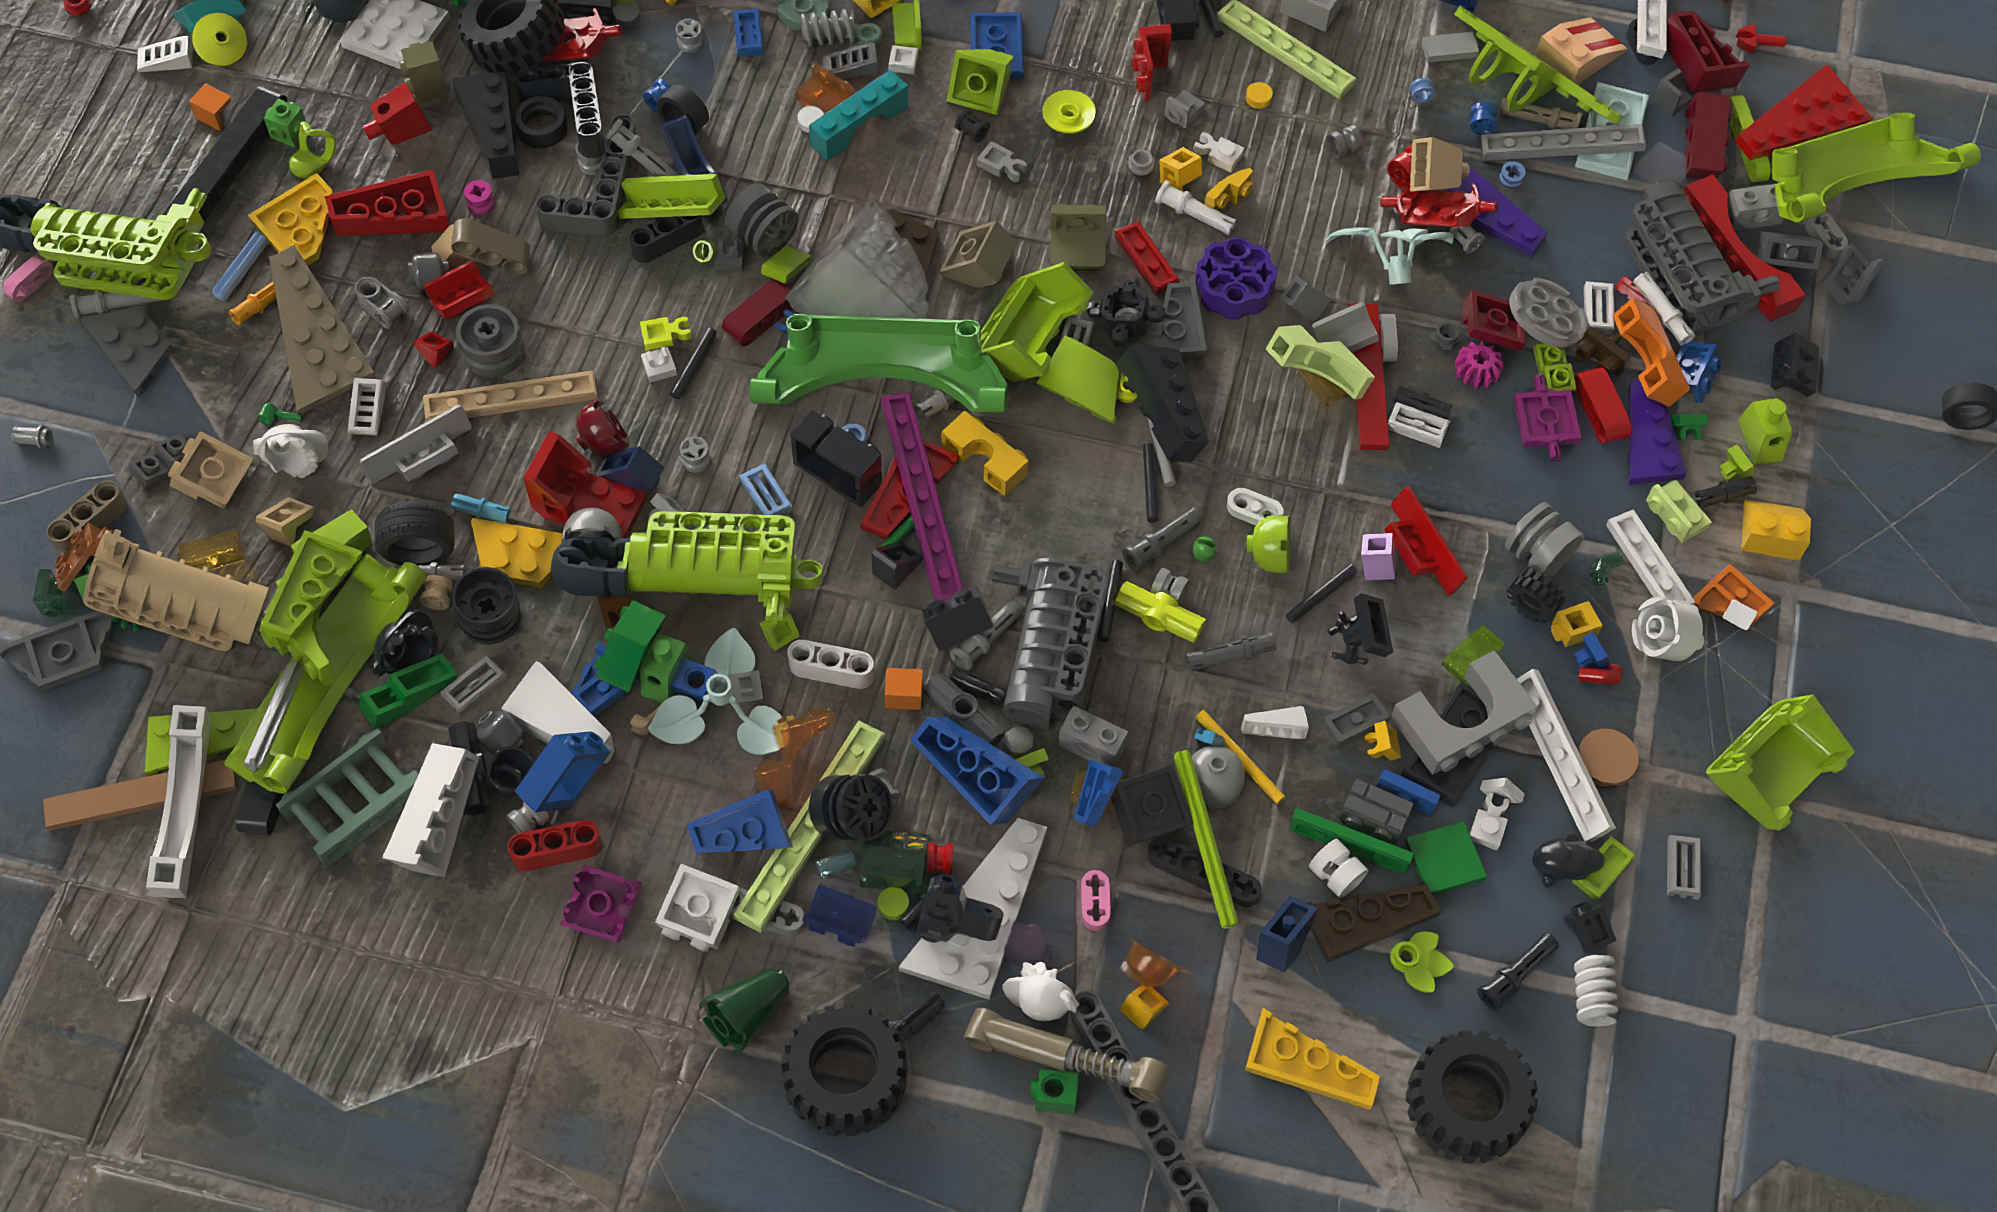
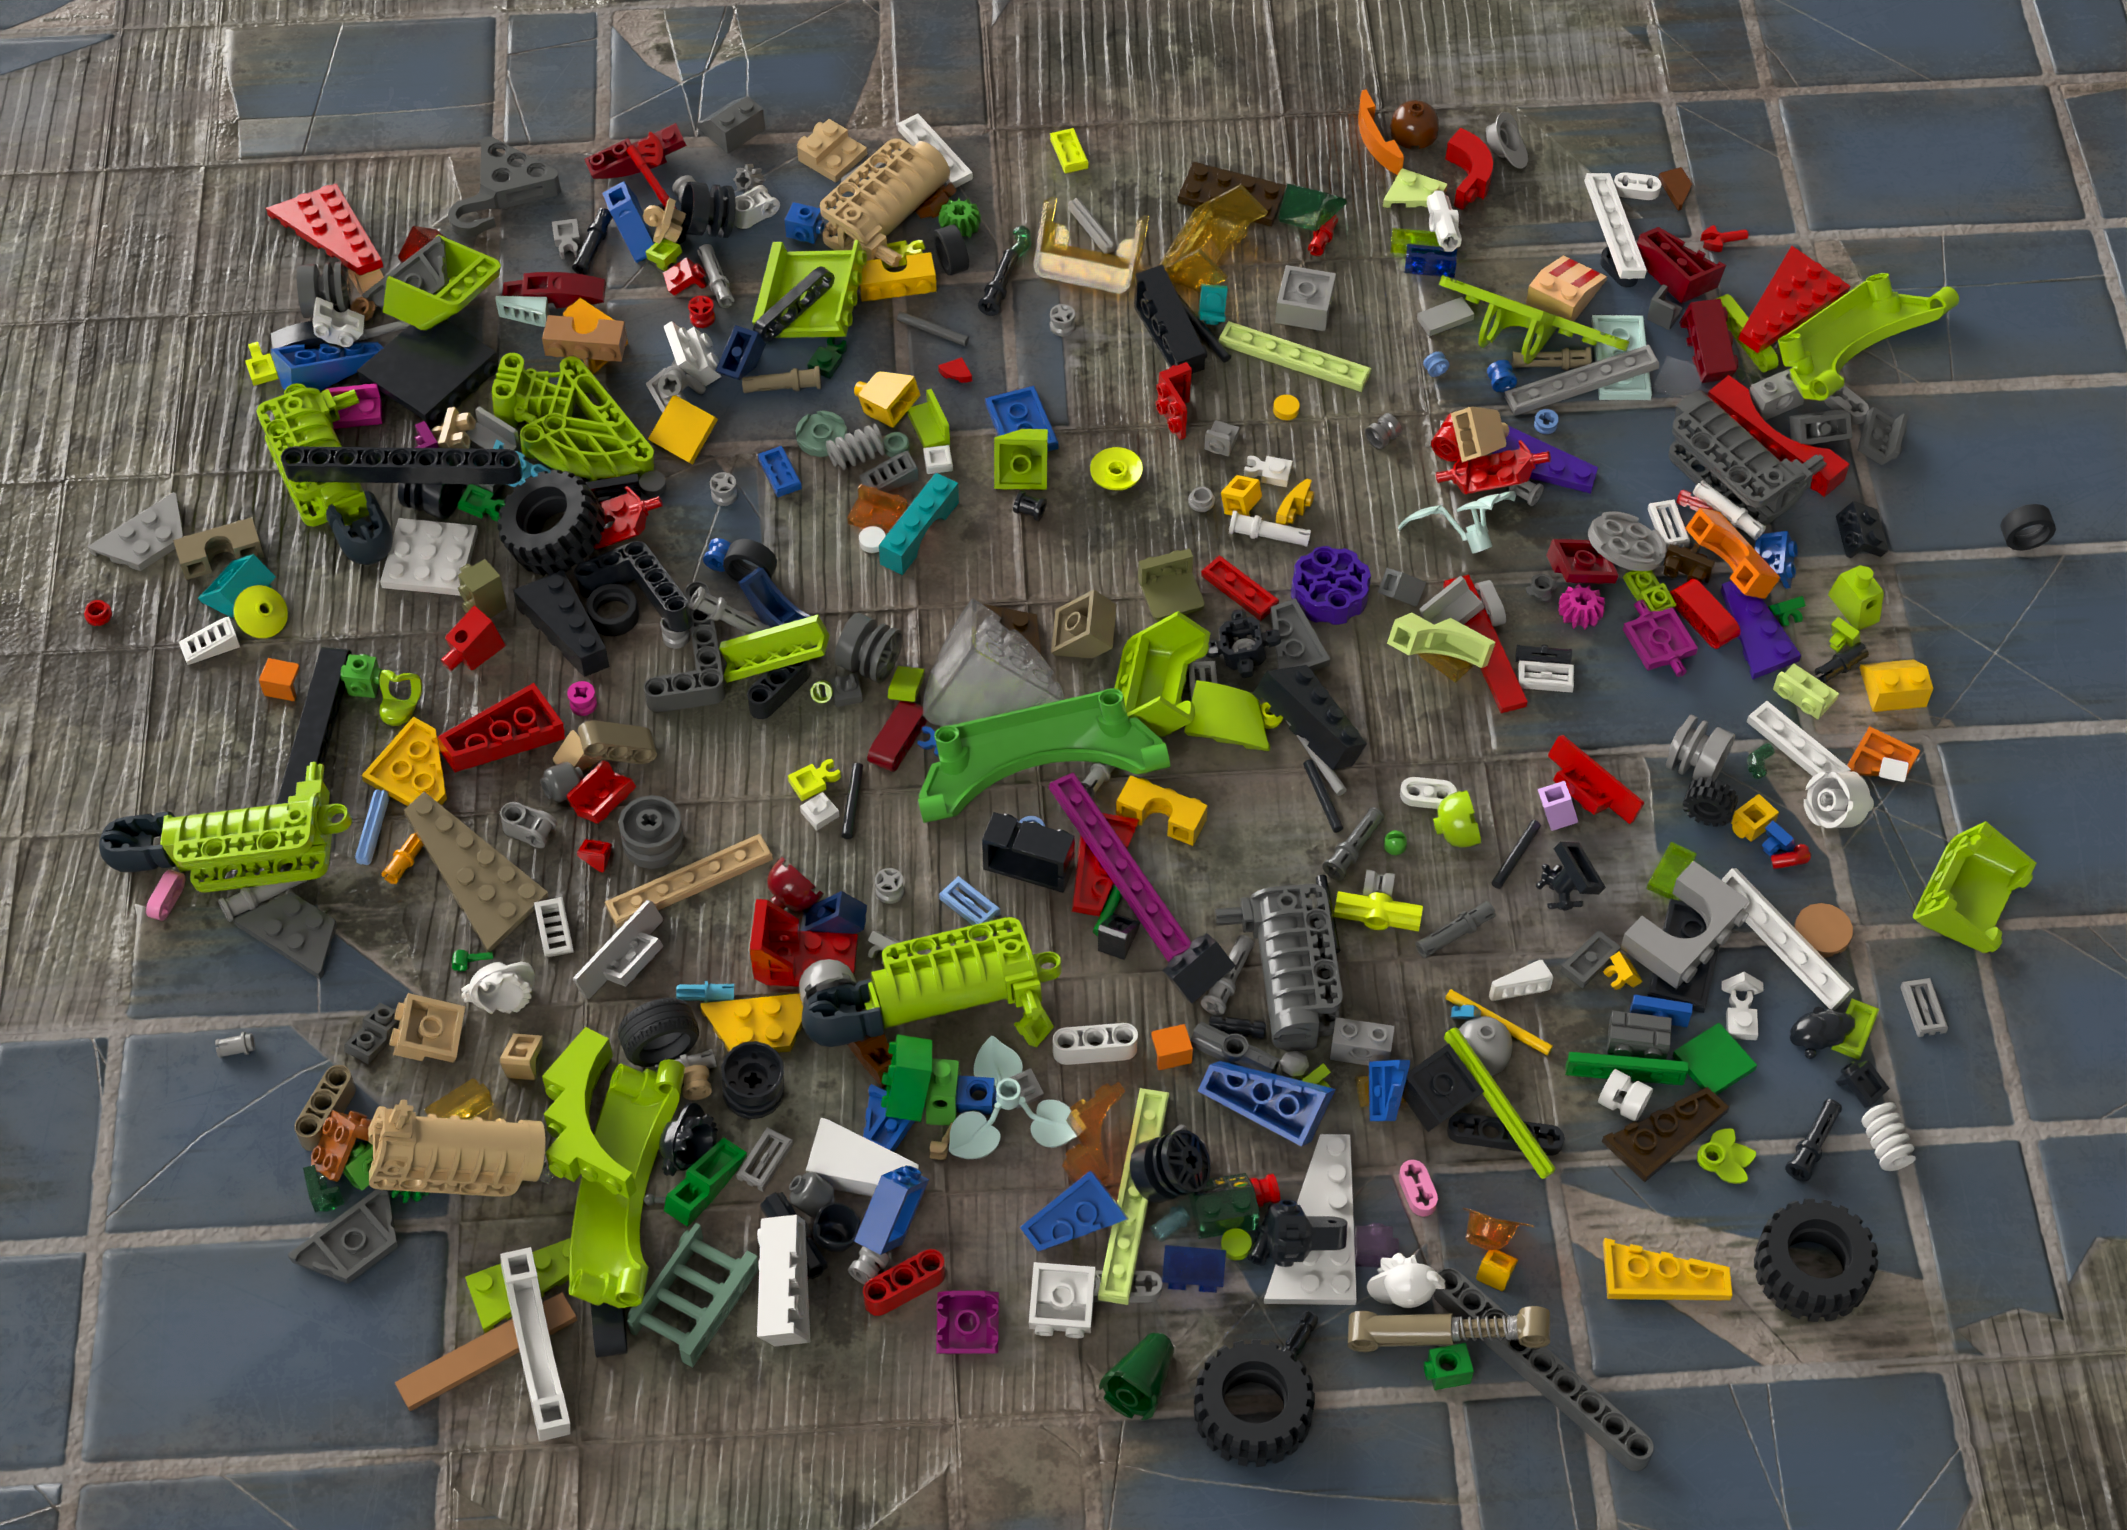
camera: 15 degrees left, 5 degrees down
(274, 716) = (597, 1237): light grey axle -> none
(308, 580) = (578, 1105): lime wing -> none
(999, 160) = (1068, 531): light grey plate -> none
(1285, 934) = (1601, 1166): dark blue slope -> none

